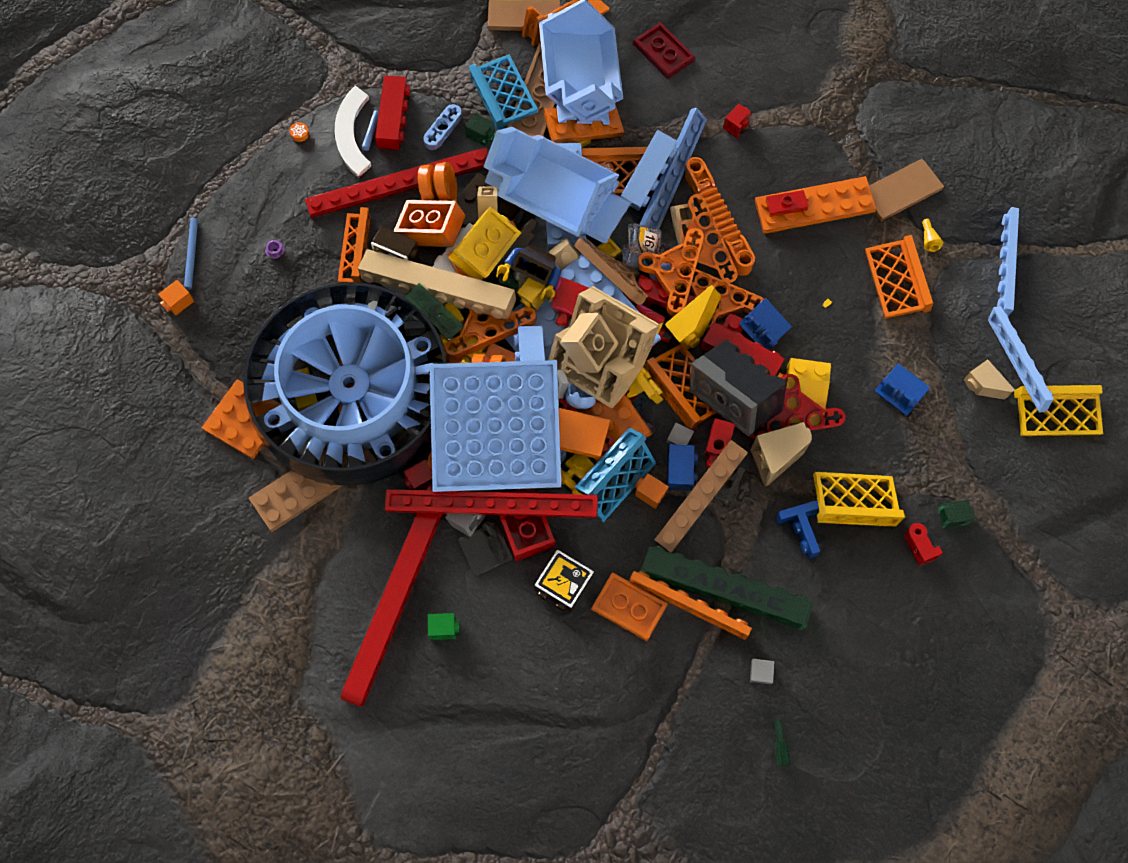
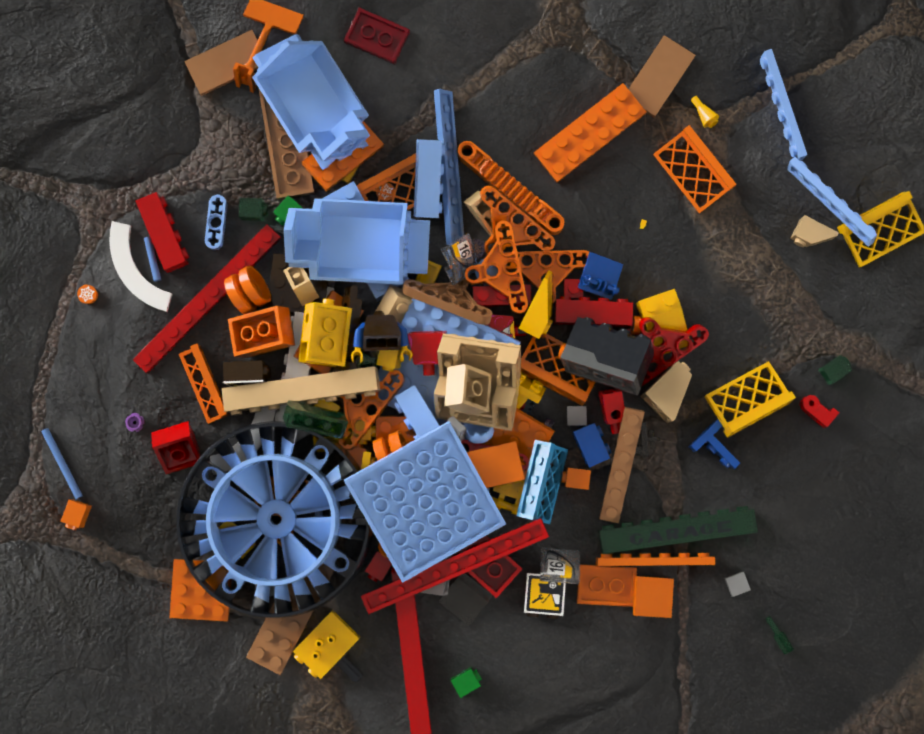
camera: 25 degrees left, 15 degrees up
(295, 280) = (176, 447): none -> red slope
(329, 526) = (327, 647): none -> yellow piece
(490, 100) = (244, 173): dark azure fence -> none
(592, 561) = (560, 565): none -> slope
(670, 639) = (653, 597): none -> orange tile
(737, 120) = (481, 79): red brick -> none
(786, 203) = (565, 147): red plate -> none
(902, 389) = (743, 276): blue hinge -> none

